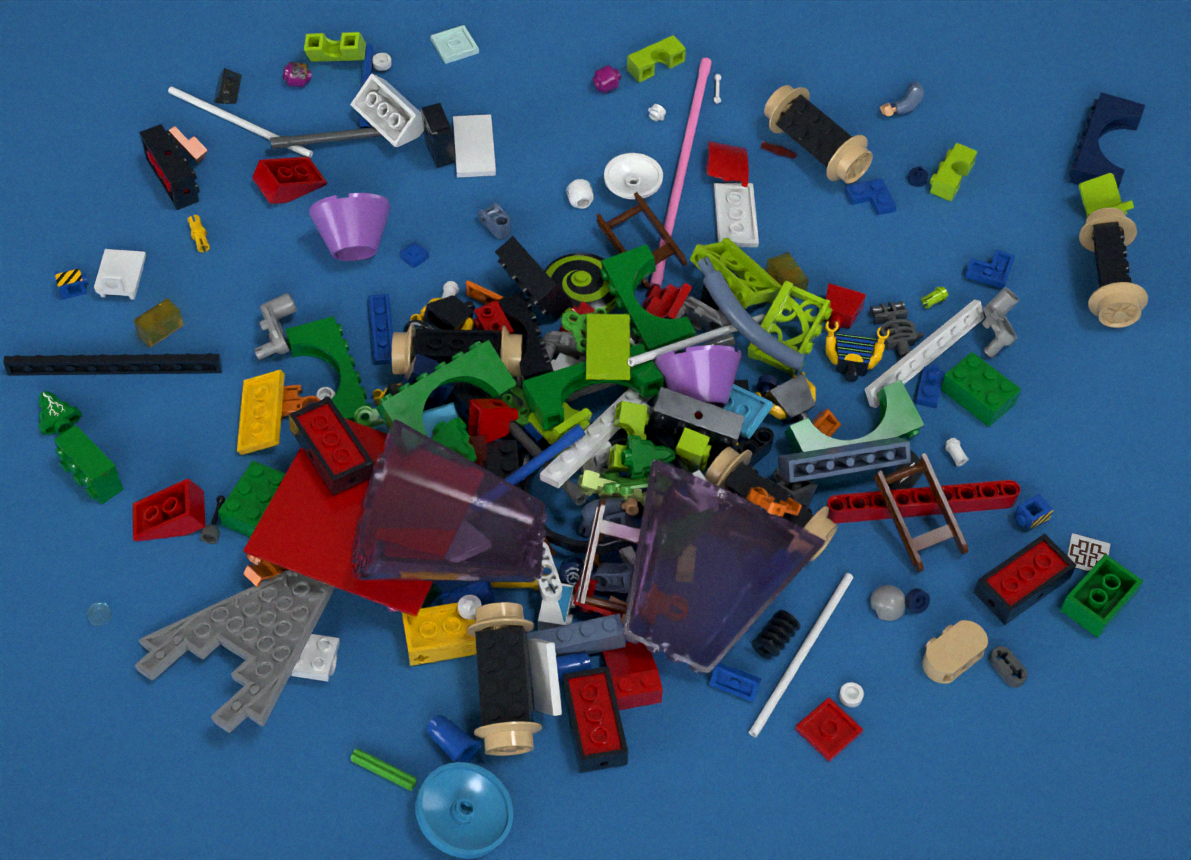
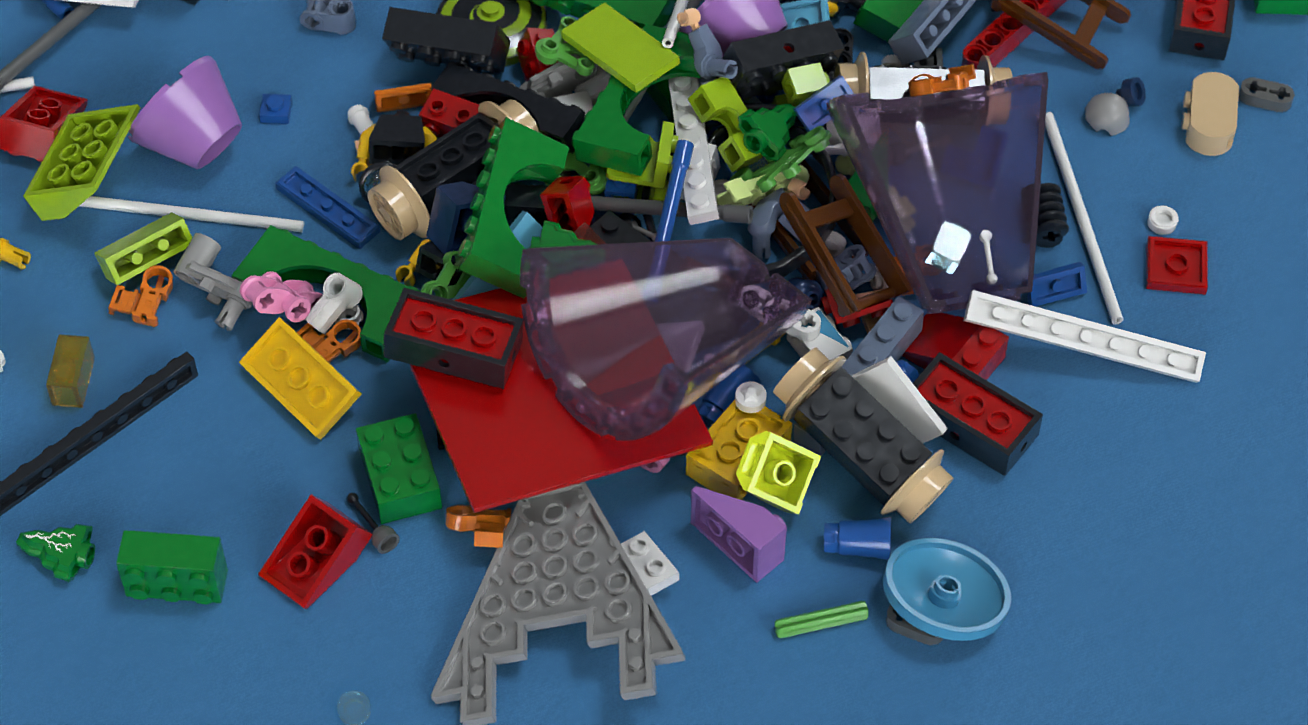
camera: 40 degrees left, 0 degrees up
(233, 312) = (145, 303): none -> orange piece
(260, 282) = (144, 248): none -> lime brick
(271, 209) = (78, 160): none -> lime slope
(299, 362) = (275, 297): none -> bright pink axle
(305, 275) = (193, 213): none -> white piece
(320, 380) = (337, 295): none -> white piece
(389, 692) = (740, 530): none -> medium lavender slope
(437, 661) = (777, 471): none -> neon yellow slope
(651, 382) = (706, 48): none -> sand blue arm
(682, 607) = (948, 247): none -> clear light blue brick
(697, 464) = (814, 110): none -> blue plate
(710, 727) = (1084, 336): none -> white plate
(714, 620) = (985, 236): none -> white hinge

